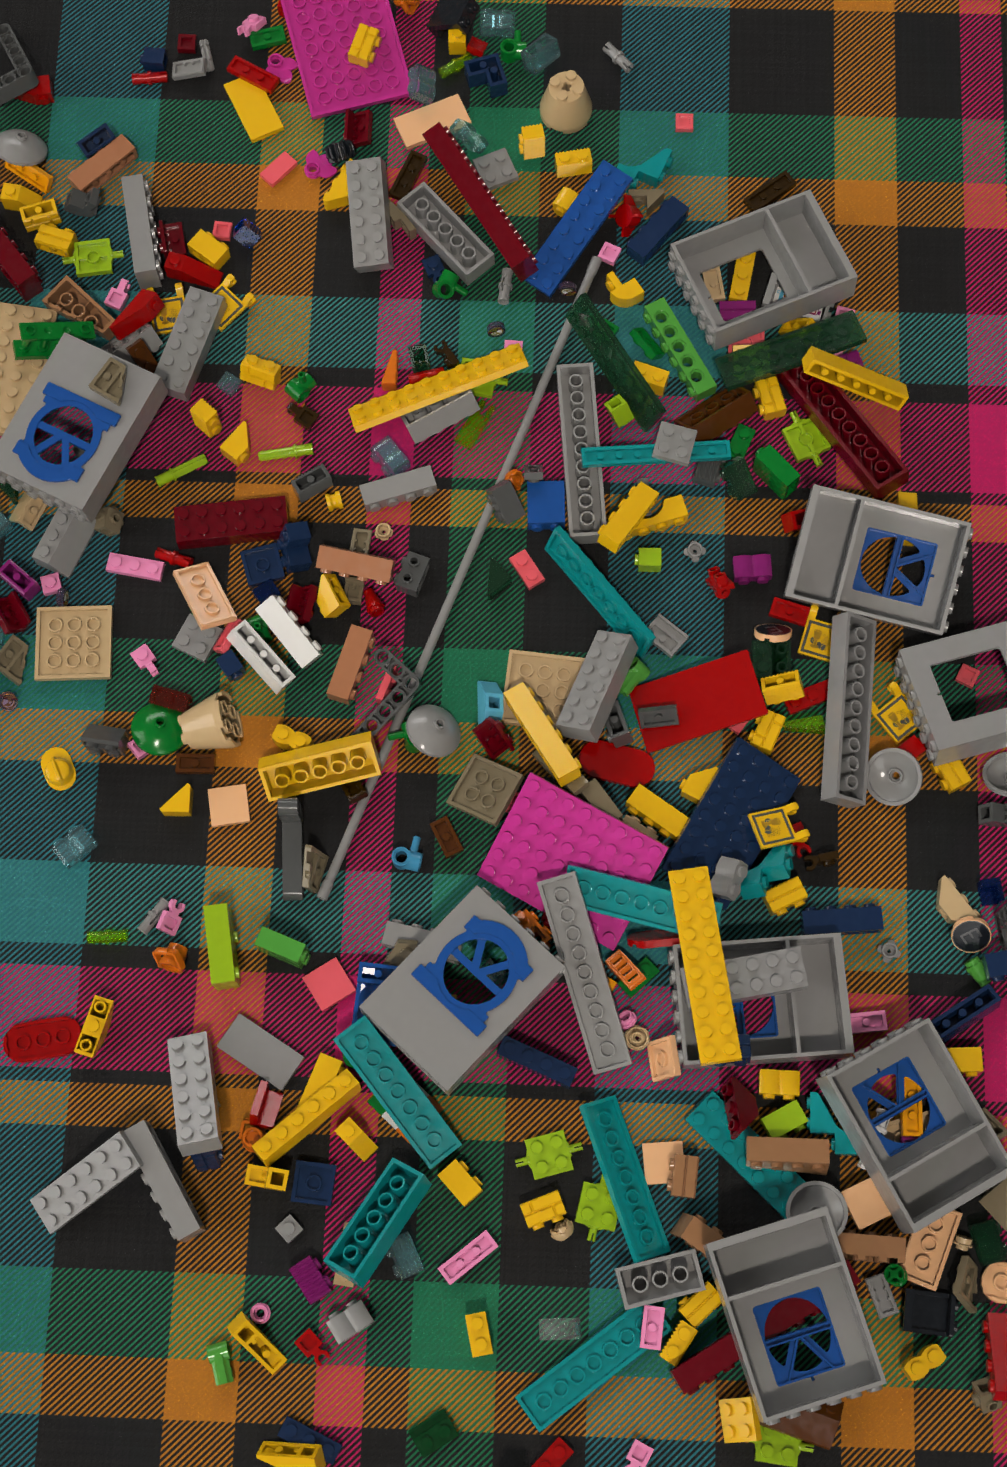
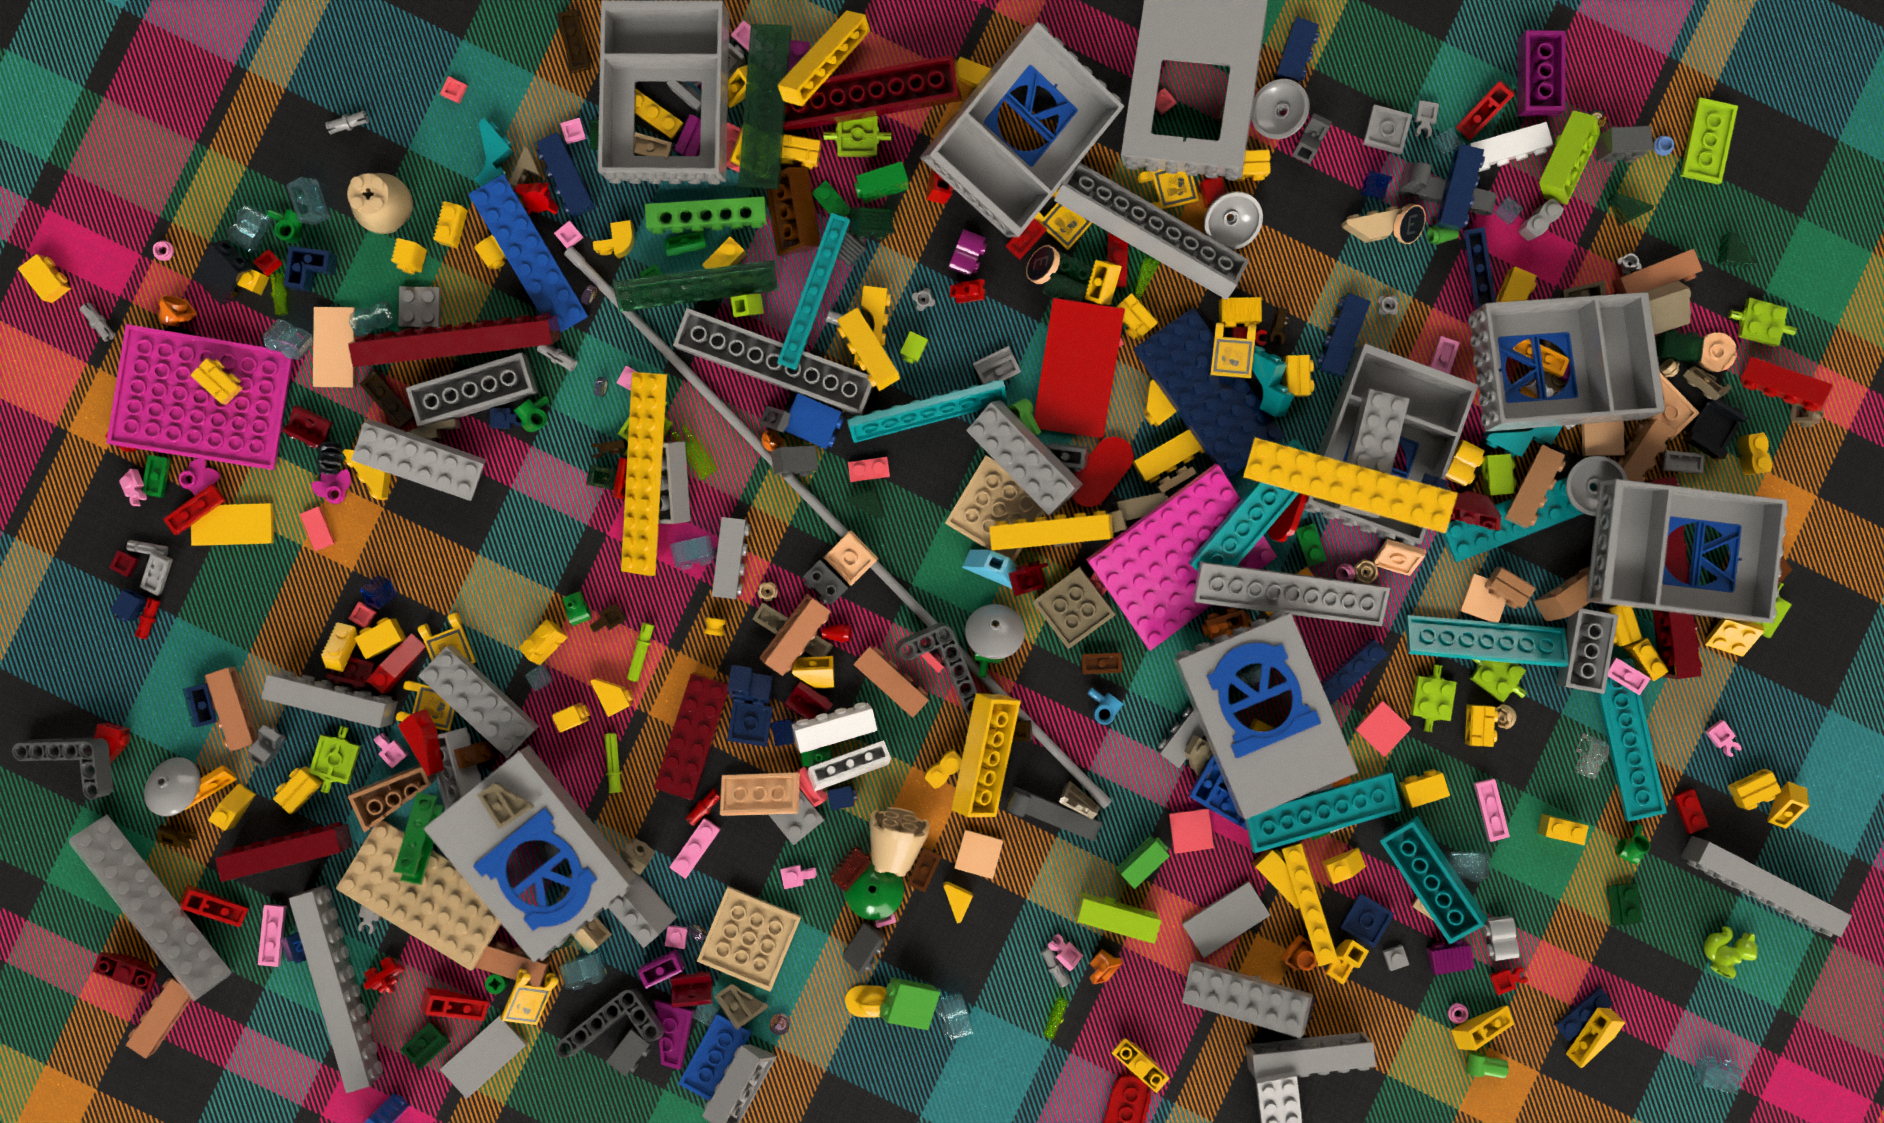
camera: 70 degrees left, 15 degrees up
(38, 213) = (261, 795): yellow brick -> none
(70, 798) = (909, 1003): none -> bright green brick
(188, 220) = (339, 647): none -> yellow brick
(265, 1106) = (1281, 935): panel -> none
(312, 483) = (687, 641): dark grey brick -> none
(390, 377) = (605, 513): orange slope -> none
(443, 585) = (850, 558): none -> light nougat tile
(493, 1413) = (1633, 848): none -> green piece
(499, 1120) = (1382, 728): none -> coral tile
(616, 962) = (1286, 557): orange slope -> none
(658, 716) = (1077, 412): dark grey plate -> none
(674, 443) = (813, 268): light grey plate -> none
(696, 222) = (573, 131): none -> bright pink plate
(728, 878) = (1265, 421): light grey brick -> none
(817, 820) = (1240, 311): none -> yellow brick
(892, 1272) = (1676, 445): green wheel -> none

